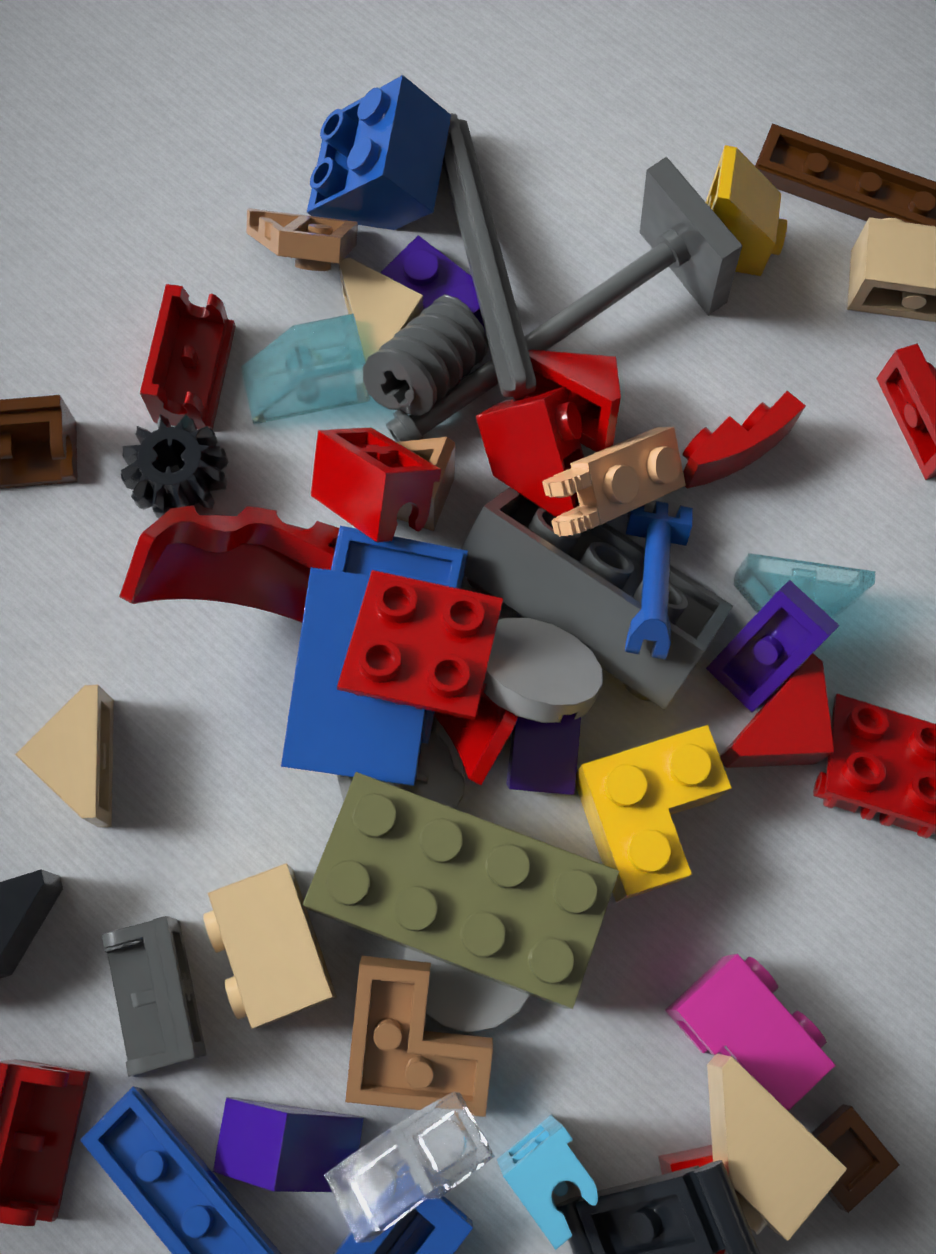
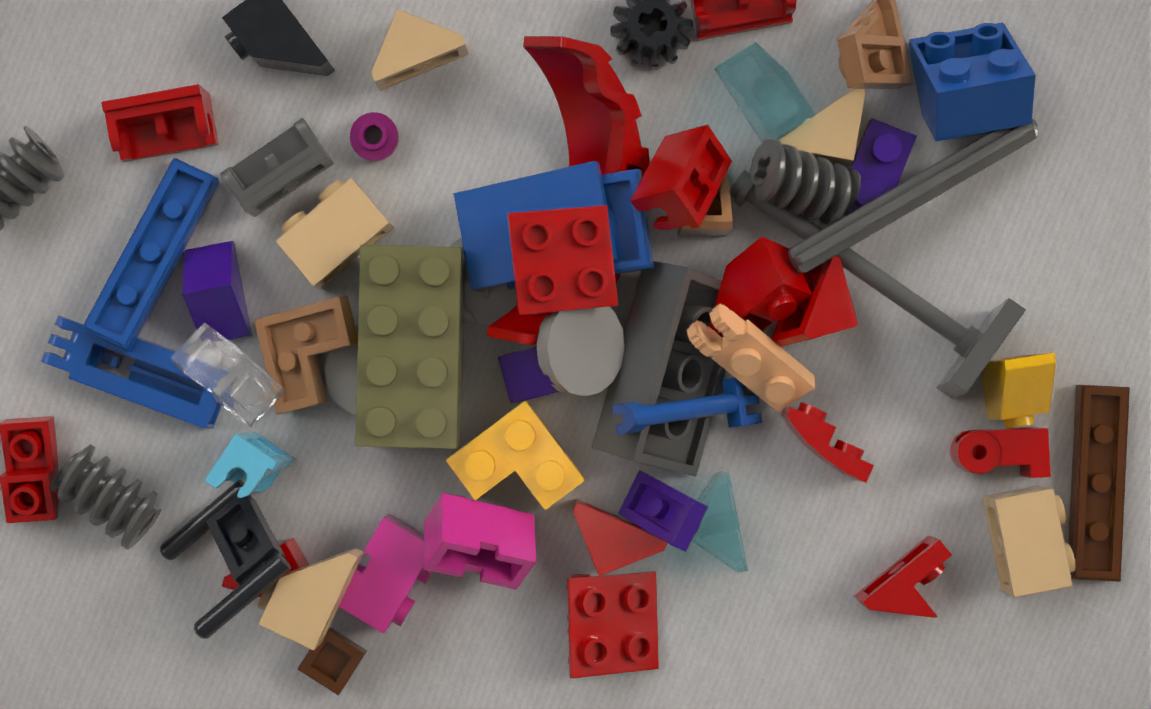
camera: 70 degrees right, 15 degrees up
(183, 862) = (378, 151): none -> magenta plate
(743, 888) = (479, 539): none -> dark pink brick
(800, 273) = (986, 448): none -> red leg

